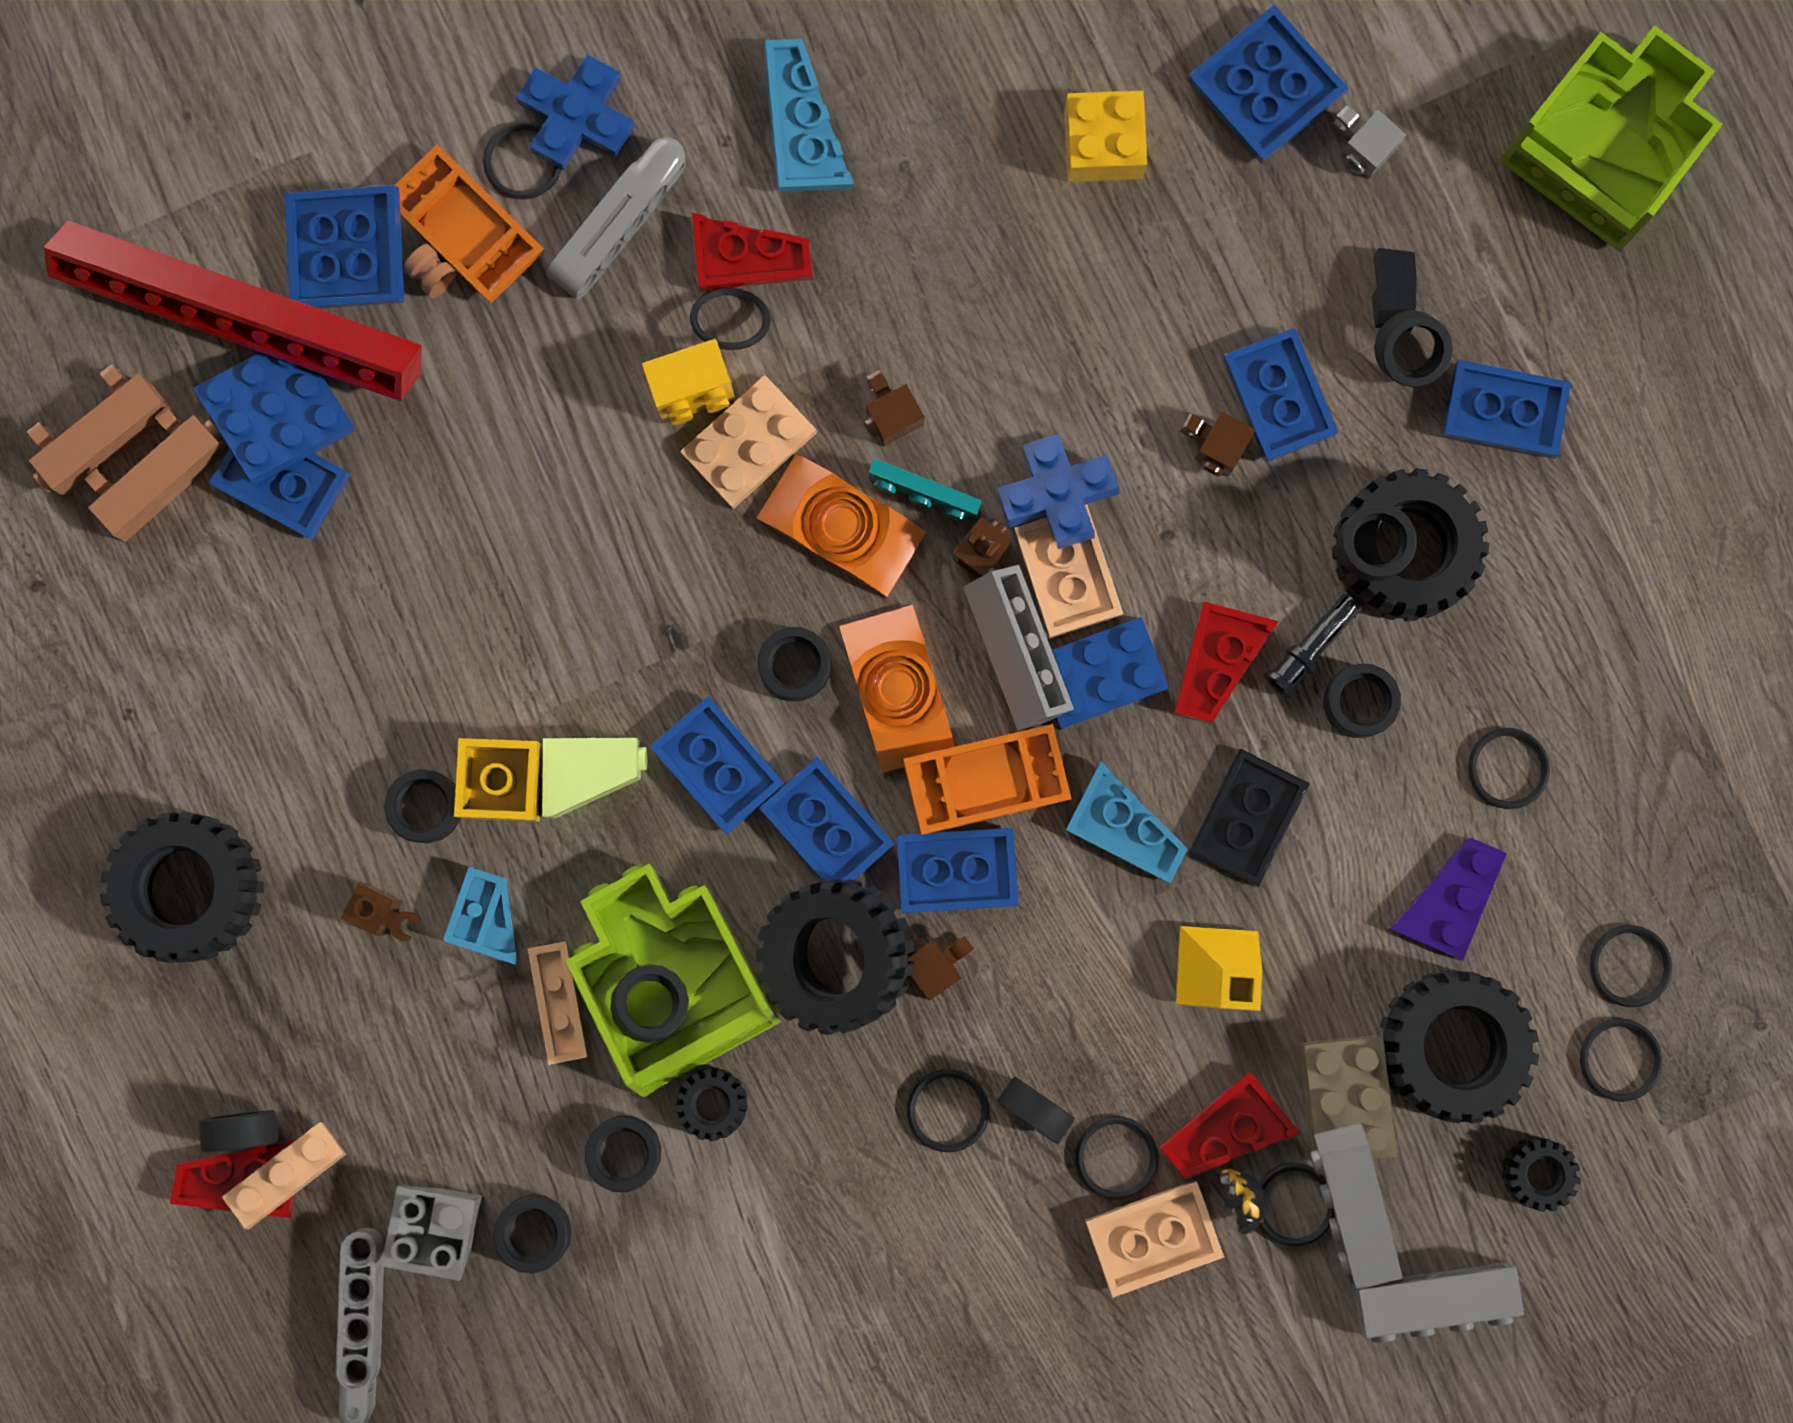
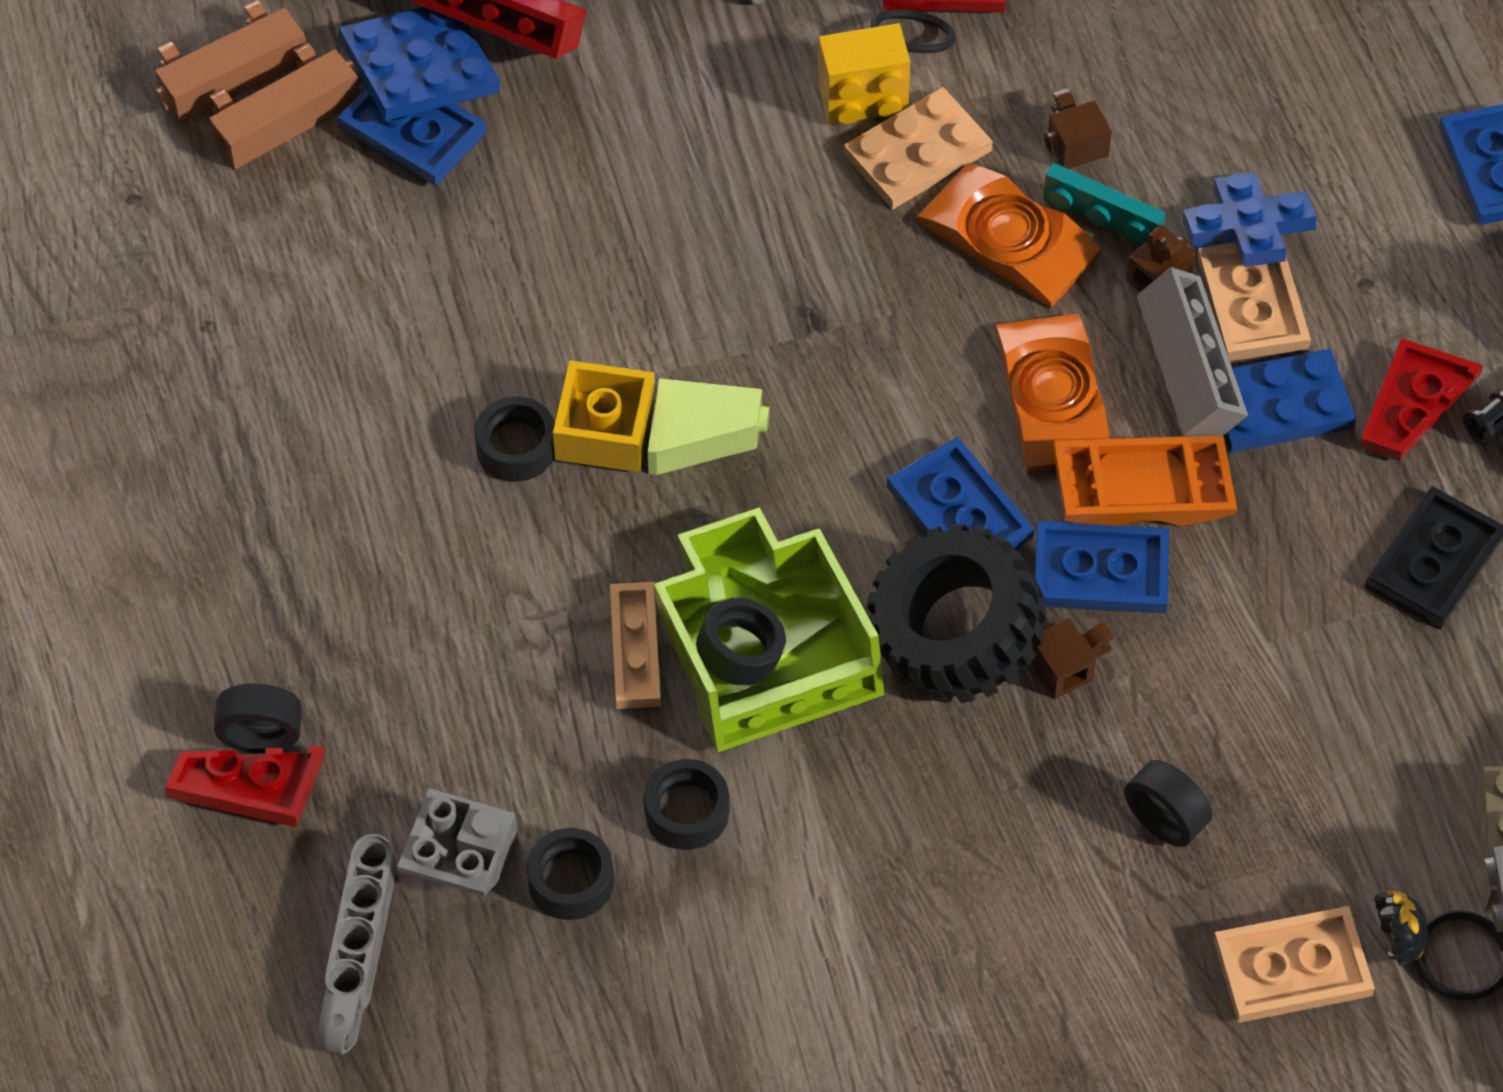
camera: 10 degrees right, 25 degrees down
(131, 888) = (233, 431): black tyre -> none
(284, 1175) = (300, 773): light nougat plate -> none
(377, 912) = (447, 528): reddish brown brick -> none
(483, 917) = (563, 552): dark azure wing -> none
(687, 1104) = (794, 789): black tyre -> none
(717, 765) = (844, 436): blue plate -> none
(782, 637) = (945, 323): black tyre -> none
(984, 1110) = (1061, 848): black tyre -> none
(1080, 1157) = (1260, 843): black tyre -> none
(1123, 827) = (1290, 545): dark azure wing -> none
(1219, 968) = (1390, 698): yellow slope -> none
(1221, 443) = (1431, 197): reddish brown brick -> none
(1227, 1128) = (1397, 855): red wing -> none

